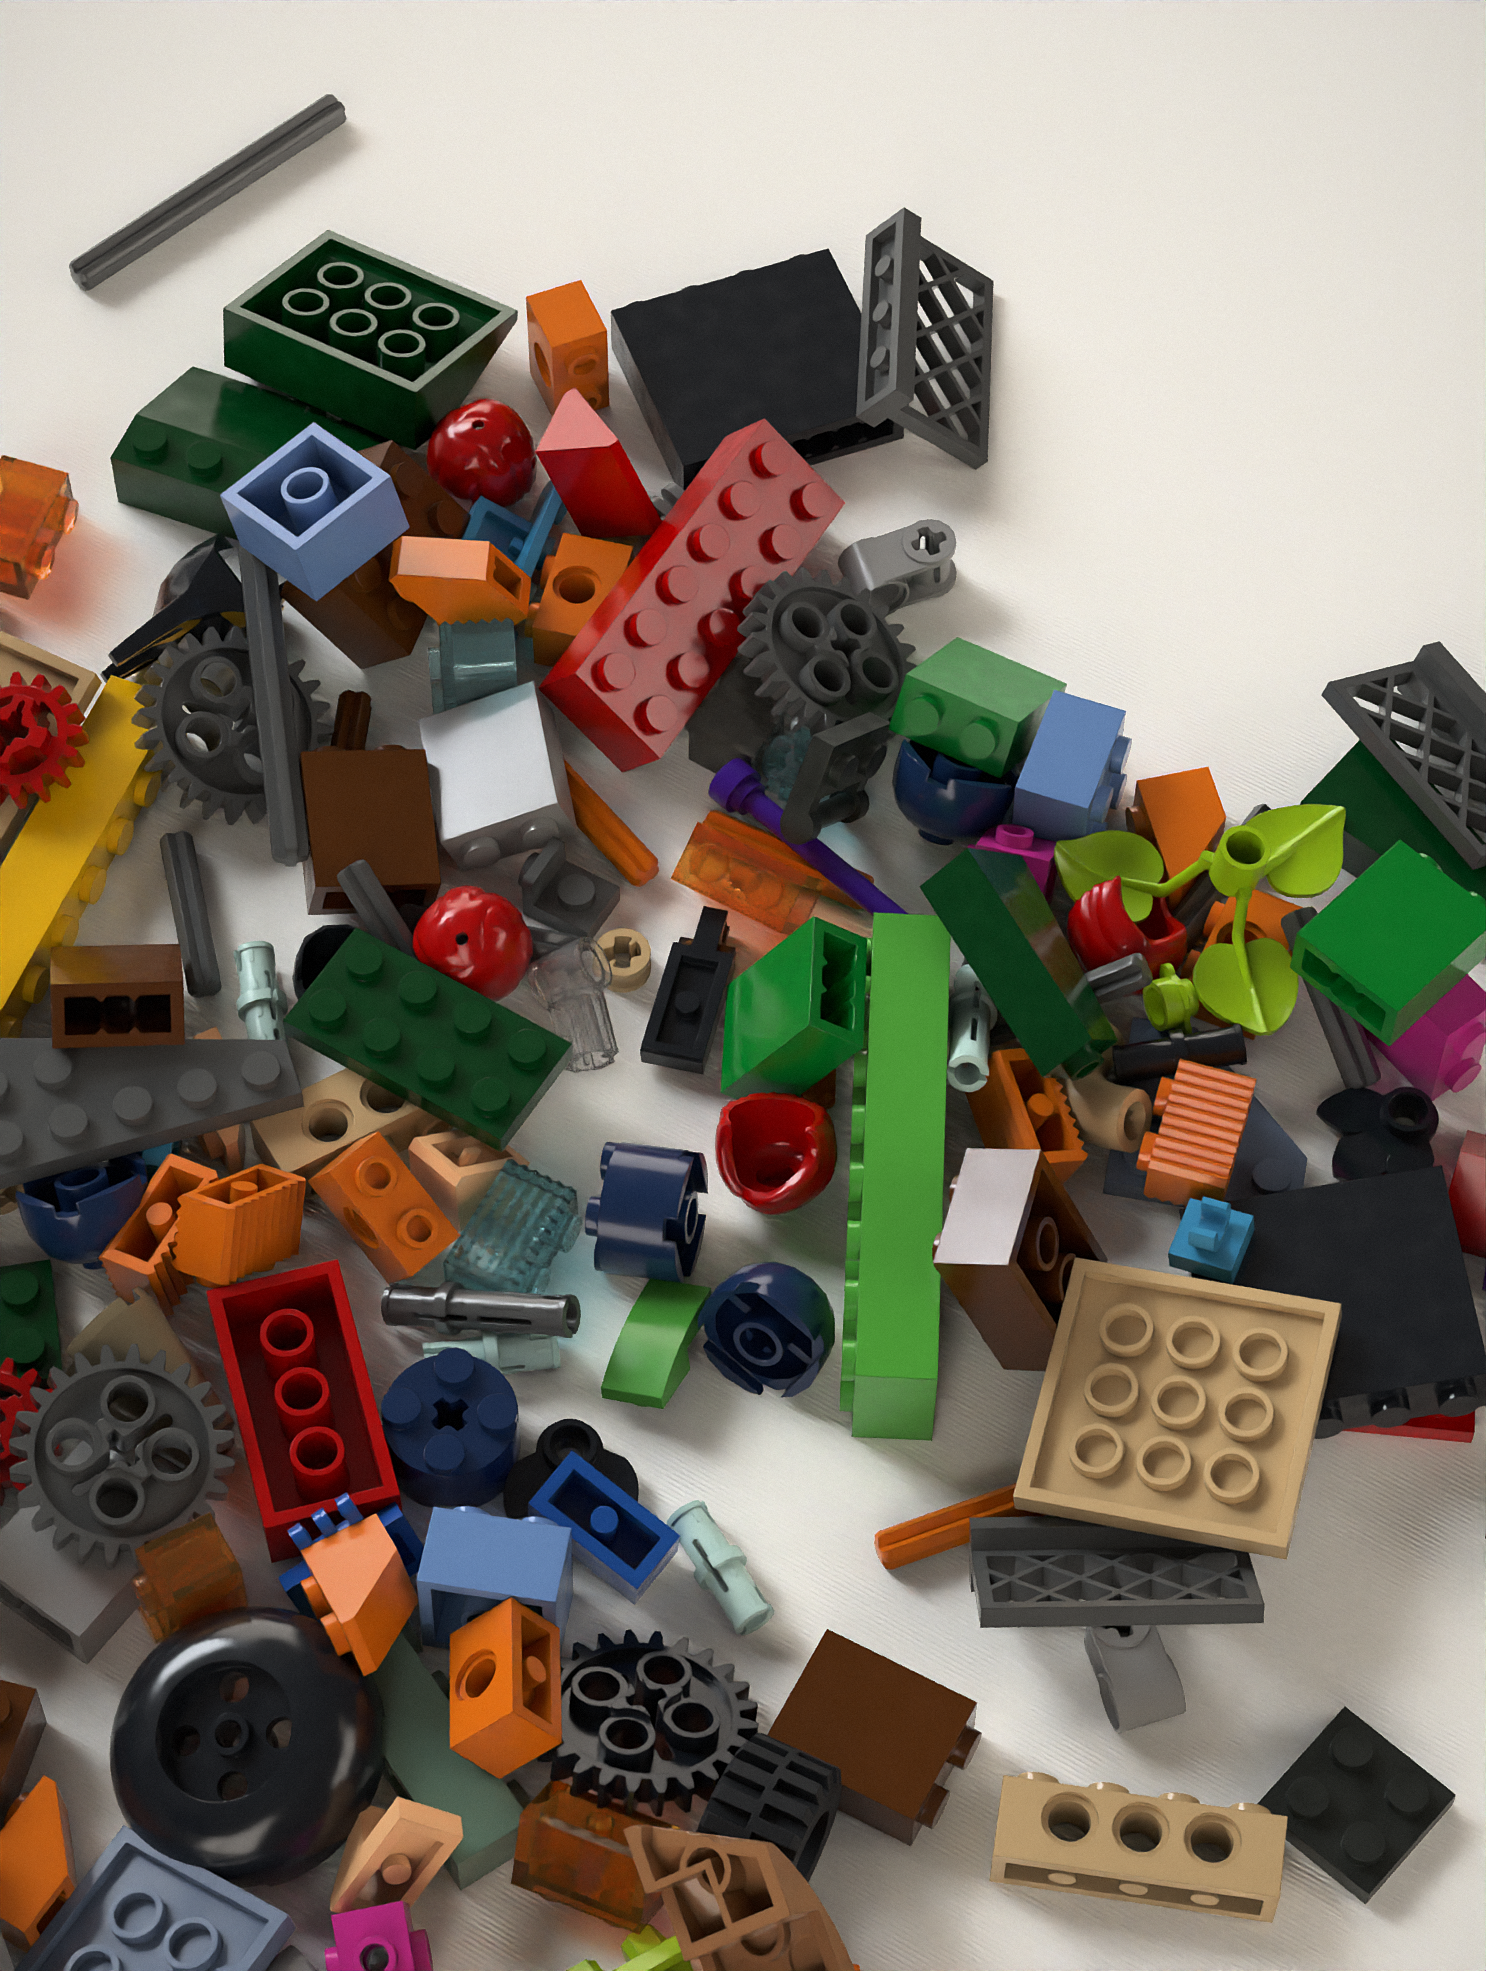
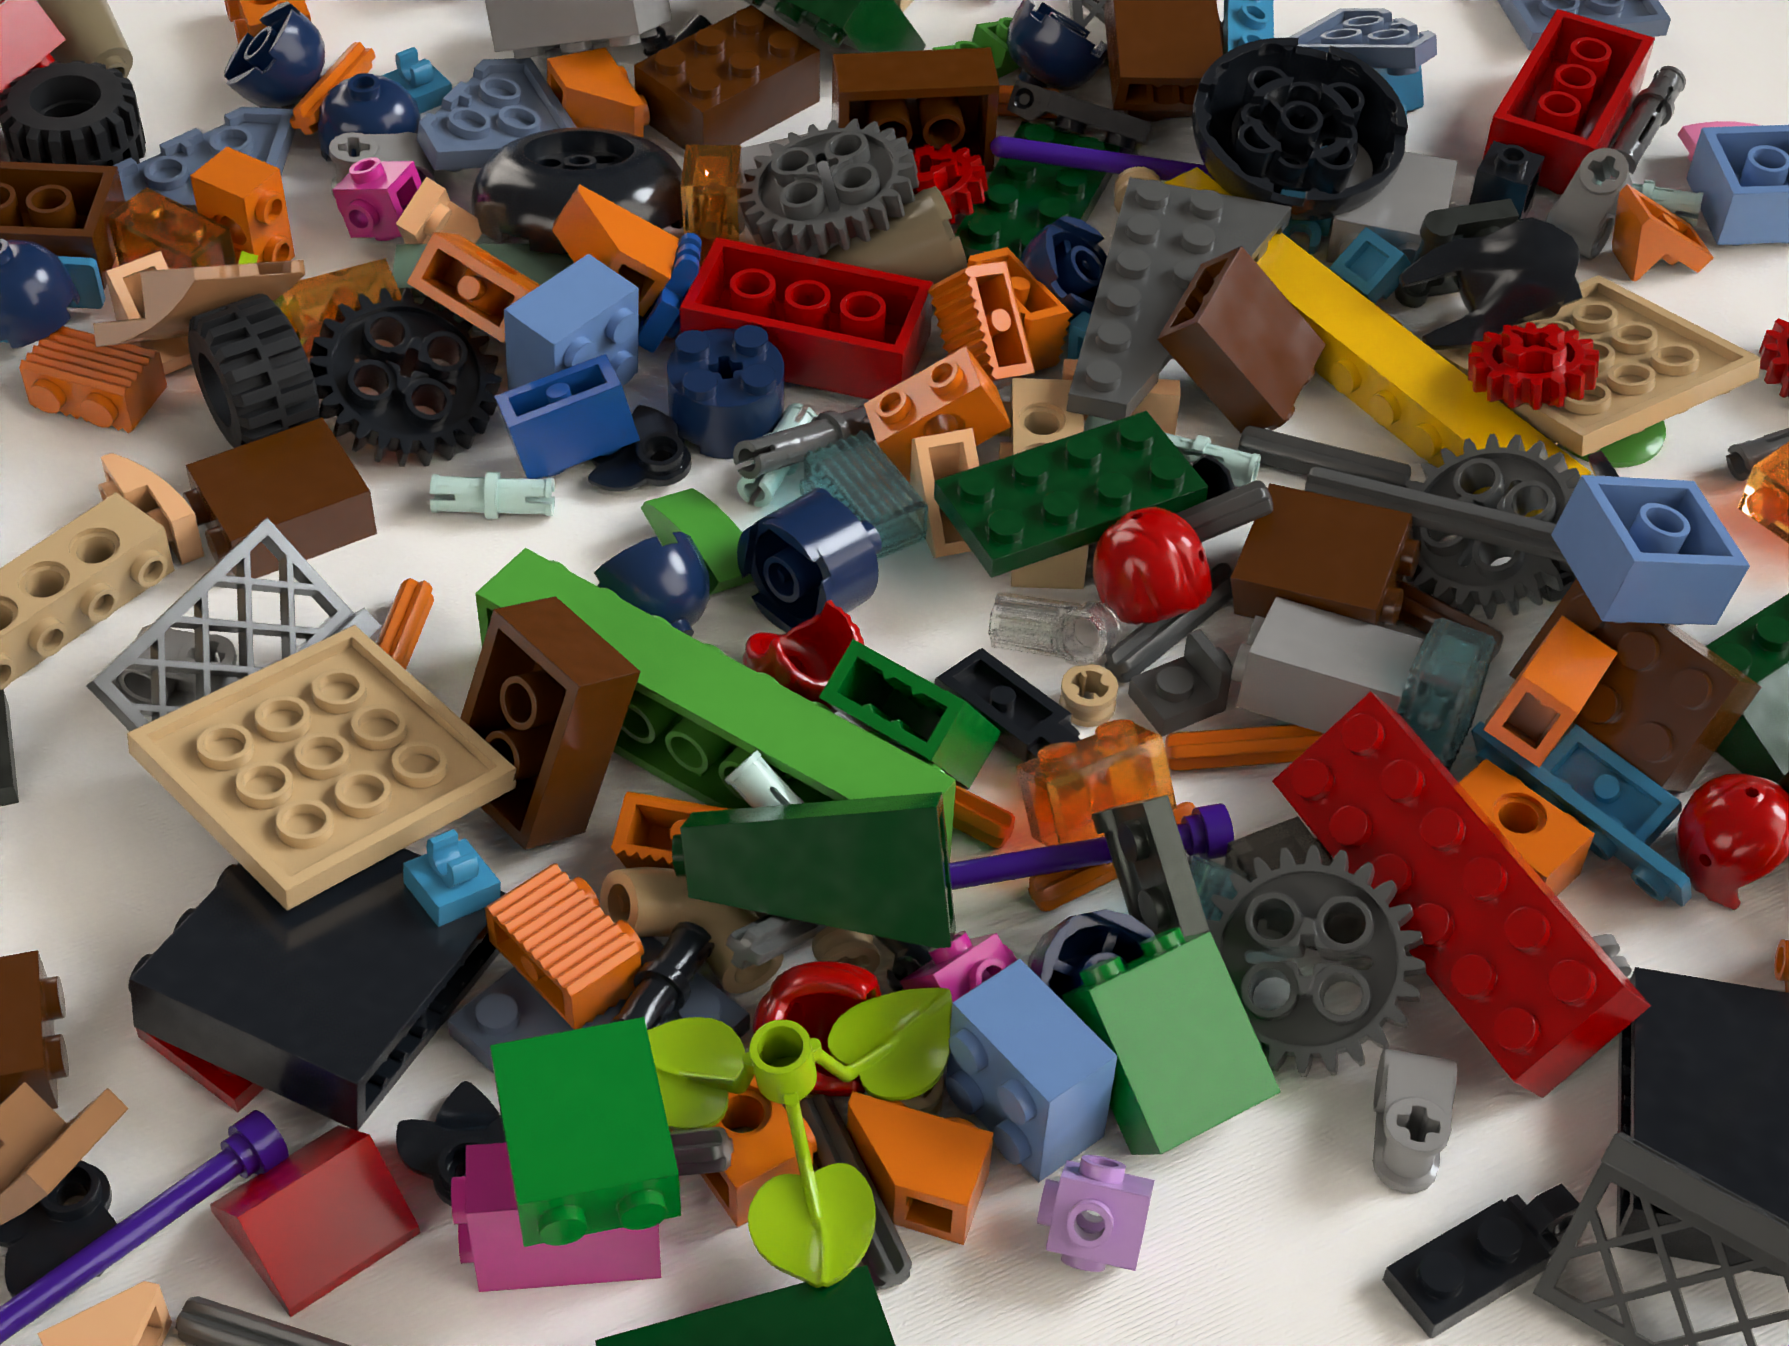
camera: 120 degrees right, 10 degrees down
(594, 473) = (1666, 889): red slope -> none
(964, 1857) = (156, 500): none -> light nougat slope
(980, 497) = (1480, 1259): none -> black hinge
(1148, 694) = (1093, 1240): none -> lavender brick
(1170, 1001) = (722, 1001): lime plate -> none

